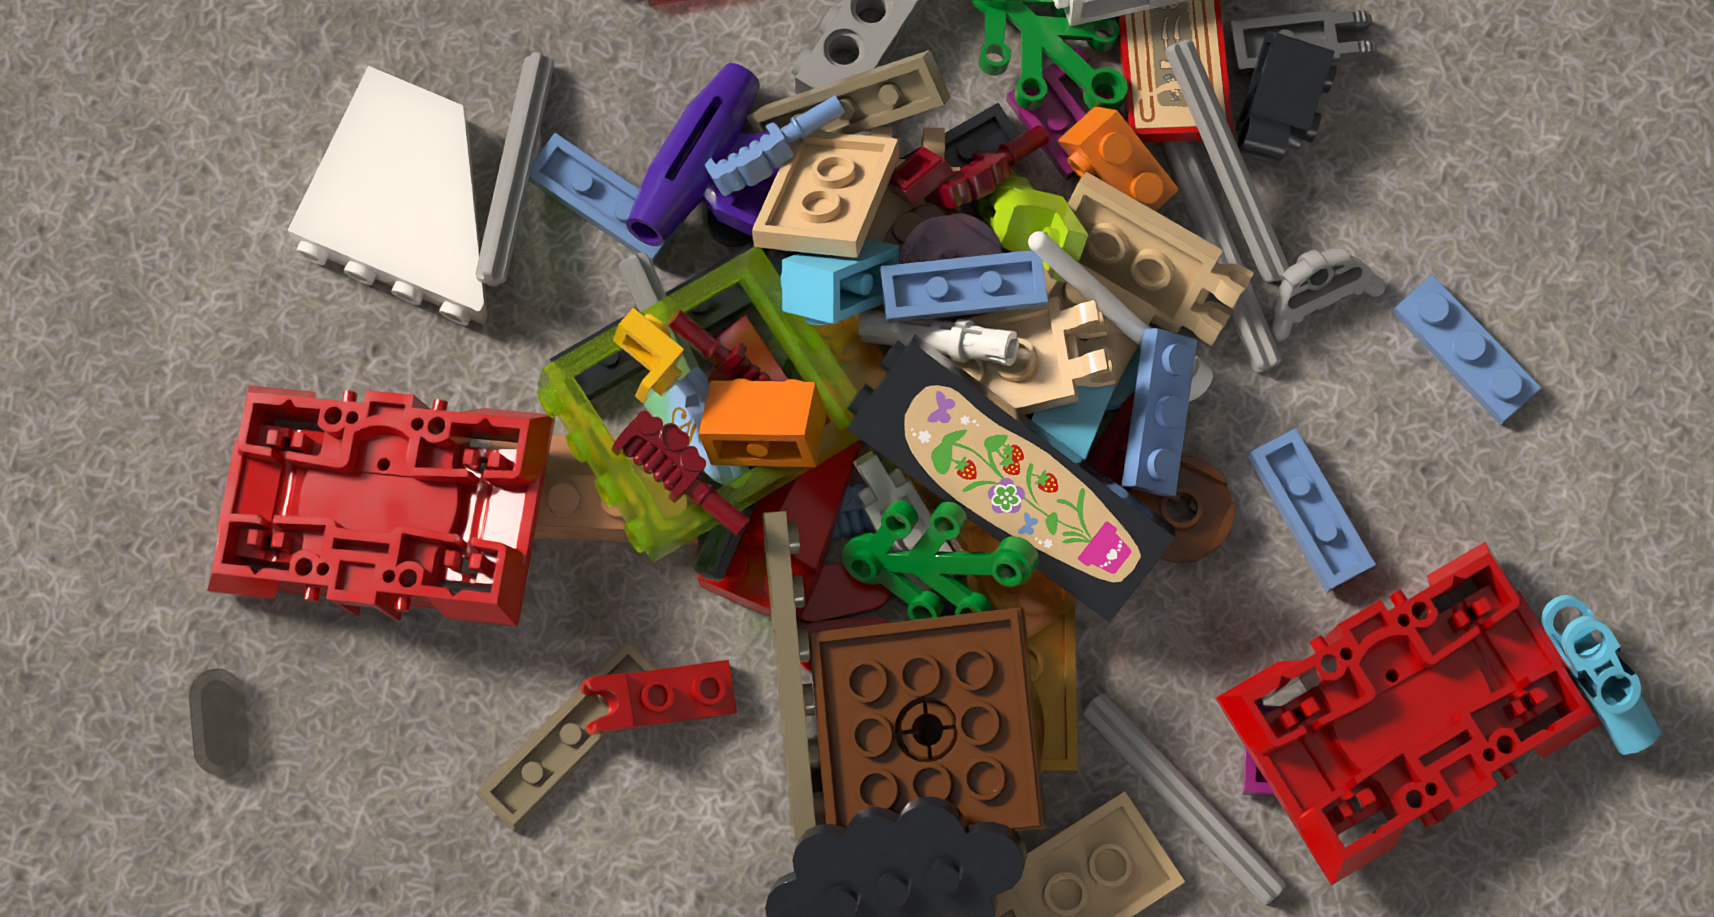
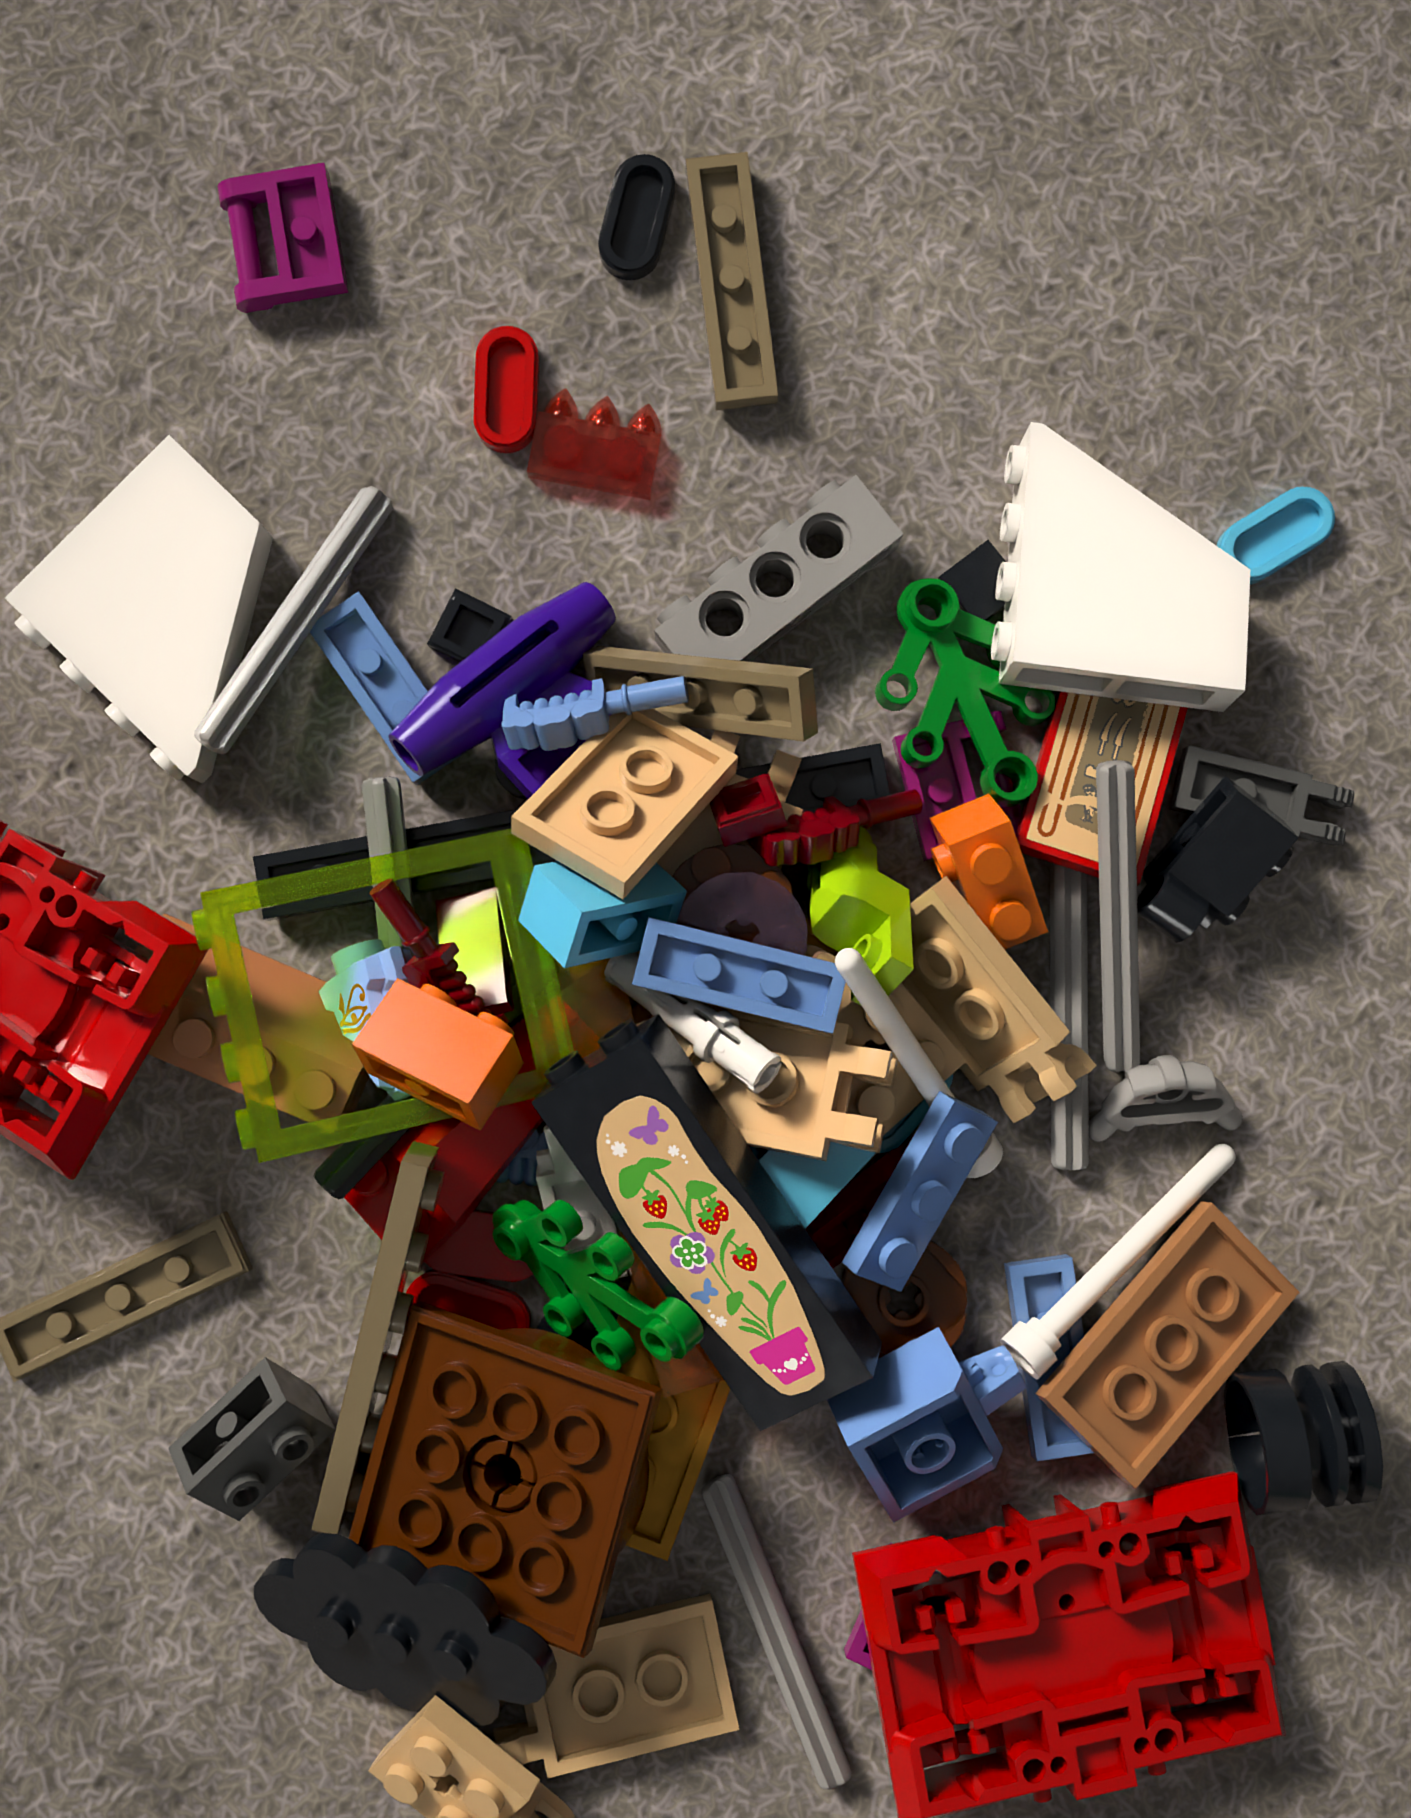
camera: 20 degrees right, 10 degrees up
(645, 132) = (466, 626): none -> black tile
(650, 345) = (336, 908): yellow bracket -> none
(662, 696) = (229, 1298): red plate -> none
(671, 461) = (309, 1063): dark red piece -> none
(723, 794) = (251, 1440): none -> dark grey brick
(1229, 582) = (924, 1420): none -> medium blue hinge
(1291, 496) = (1036, 1342): none -> white piece
(1392, 462) = (1167, 1343): none -> medium nougat plate
(1466, 349) = (1305, 1232): medium blue plate -> none
(1525, 487) = (1310, 1439): none -> black wheel
(1611, 684) = (1310, 1687): medium azure connector -> none

